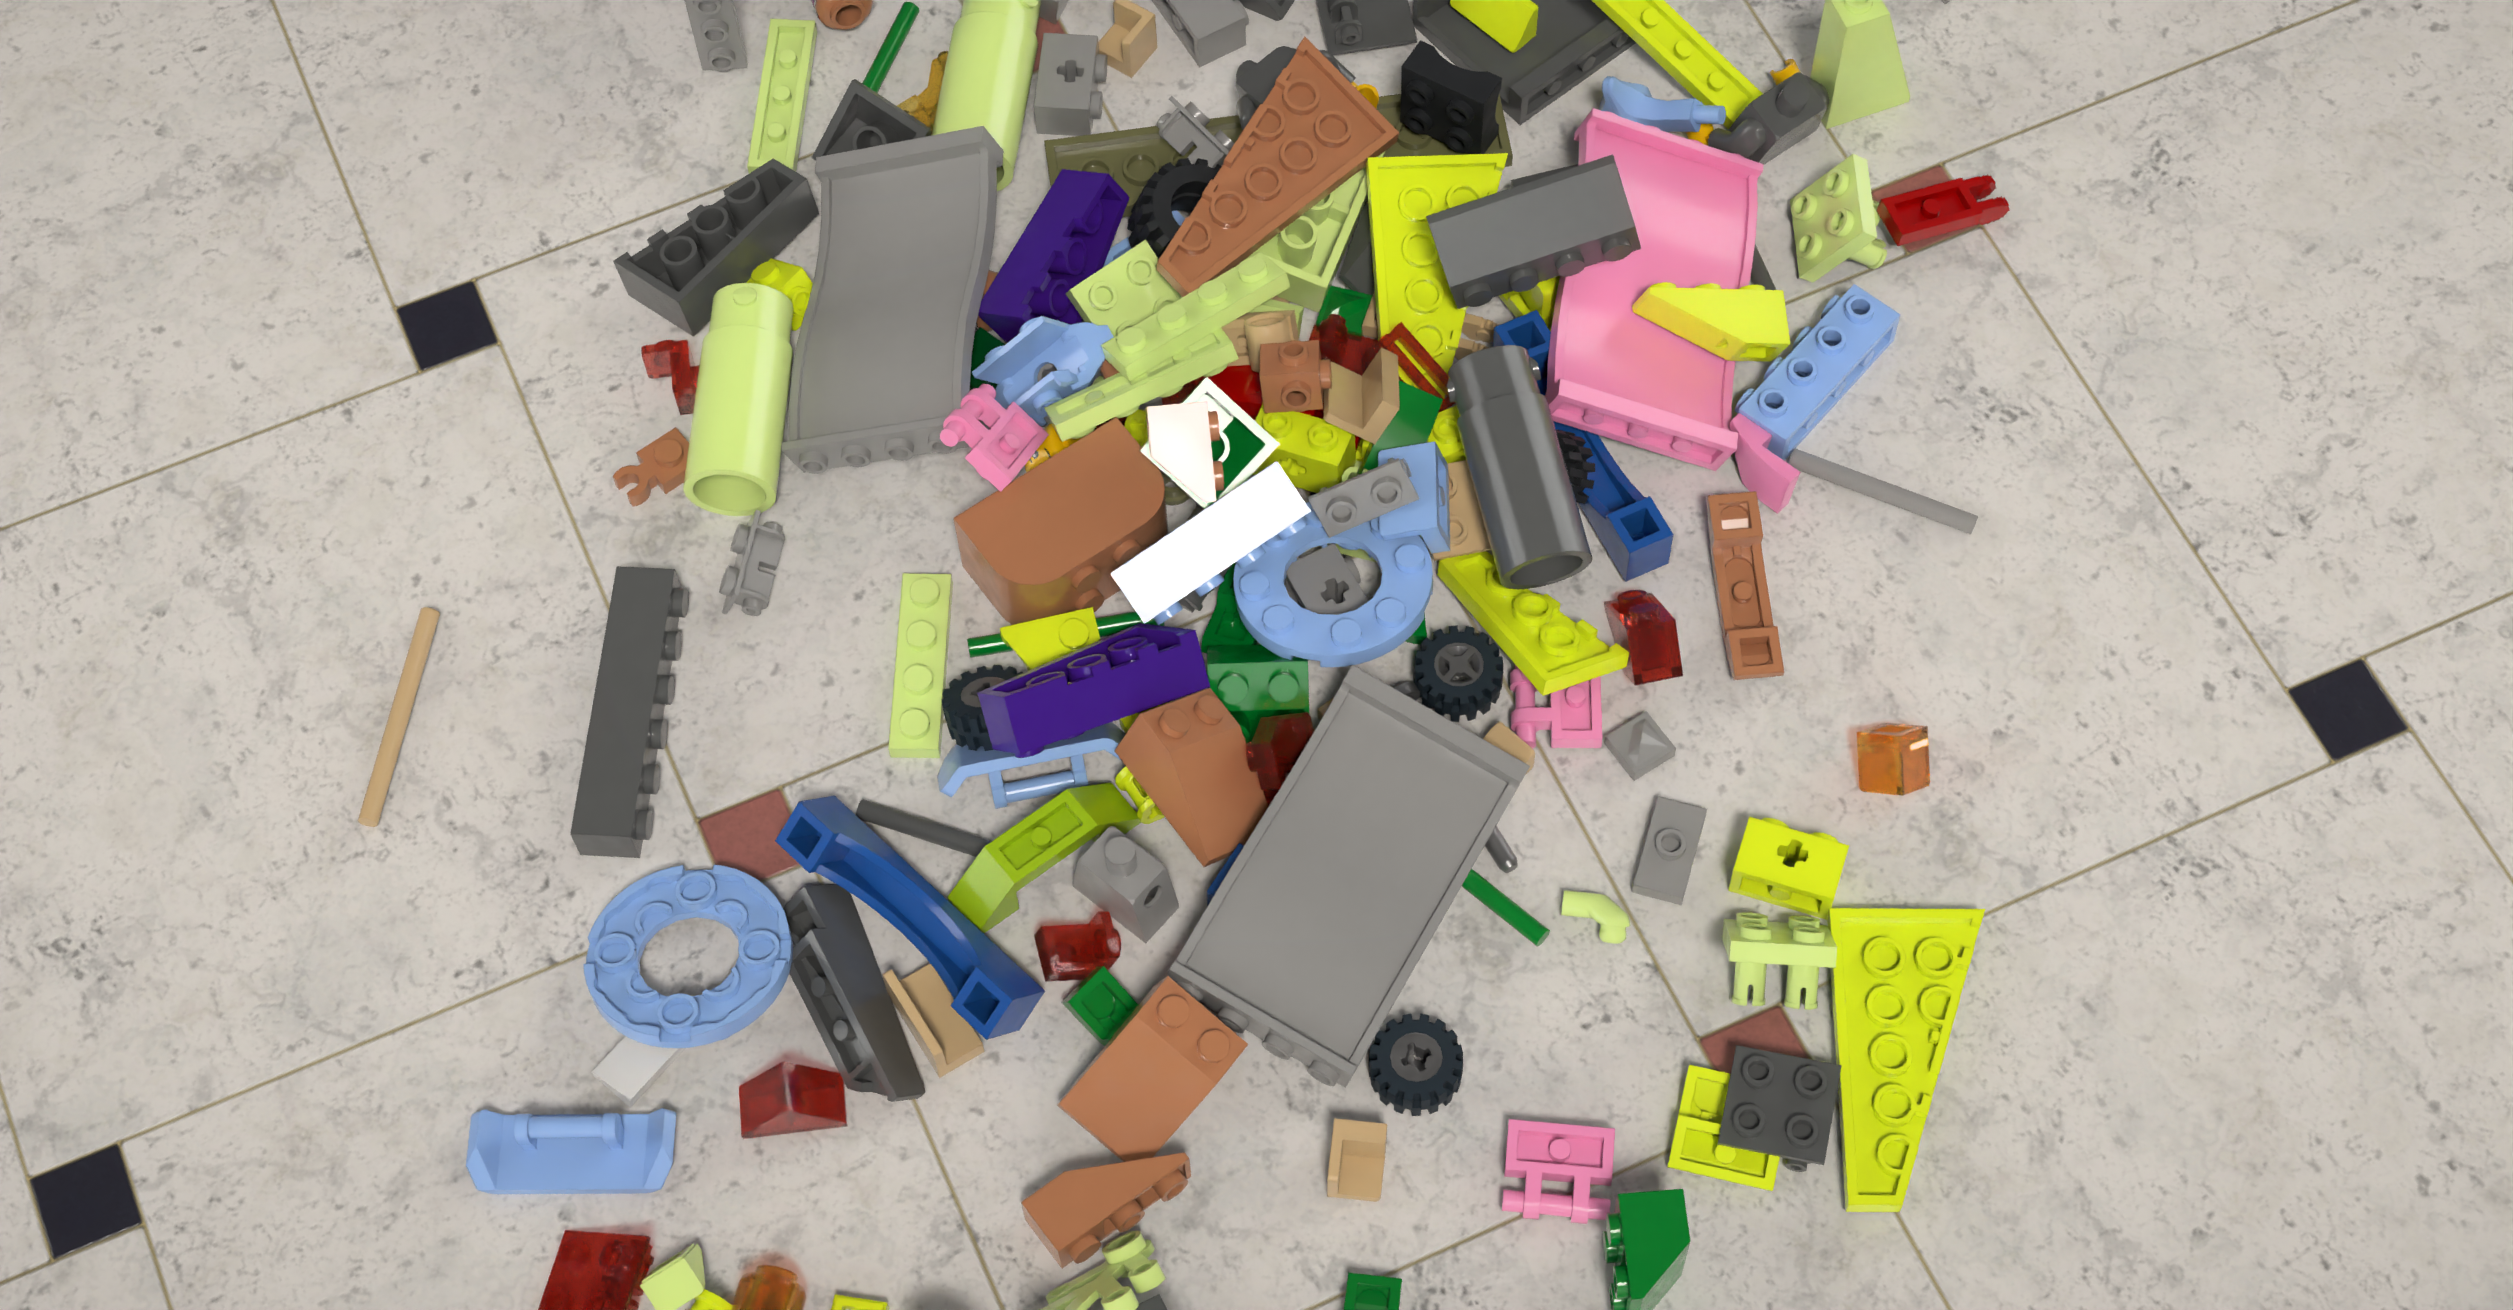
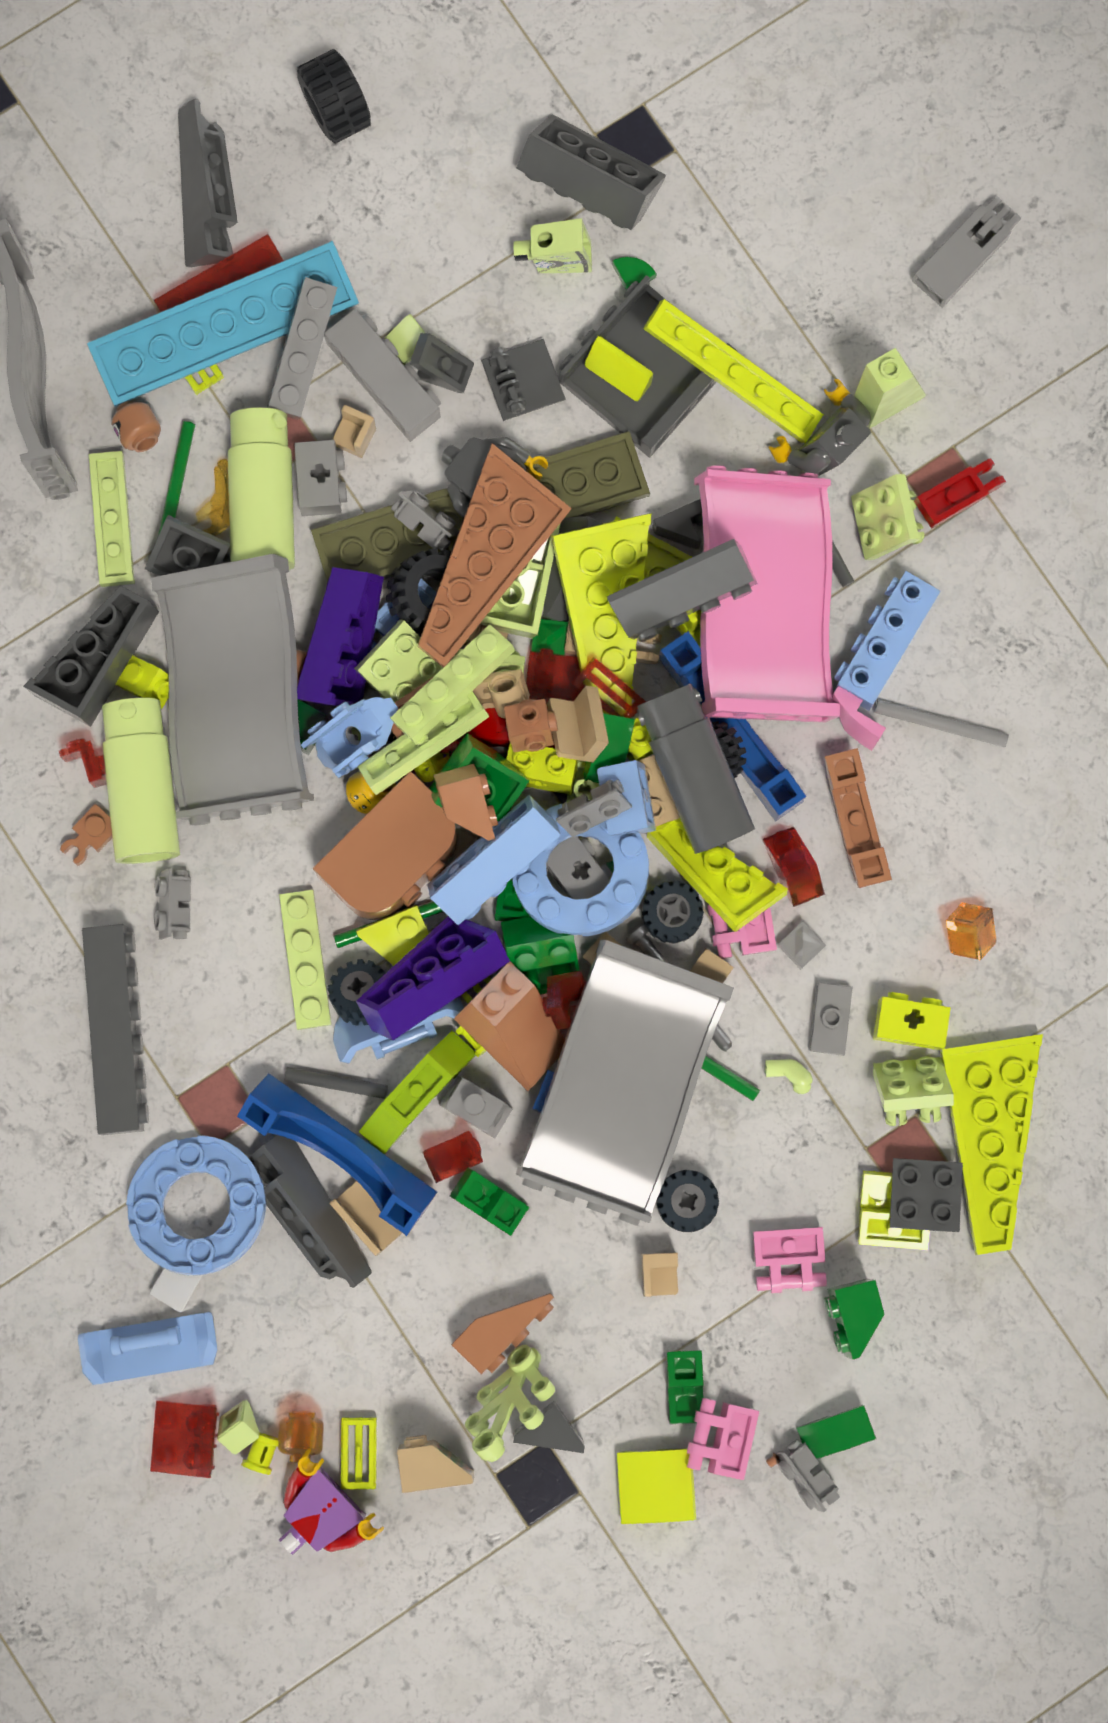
camera: 15 degrees left, 20 degrees up
(792, 1101) = (285, 1292): clear red slope -> none
(1002, 448) = (338, 806): bright pink plate -> none
(1152, 1073) = (518, 1240): nougat slope -> none
(1449, 101) = (602, 470): black brick -> none
(1637, 104) = (730, 441): light blue animal -> none
(1727, 322) = (821, 620): neon yellow slope -> none

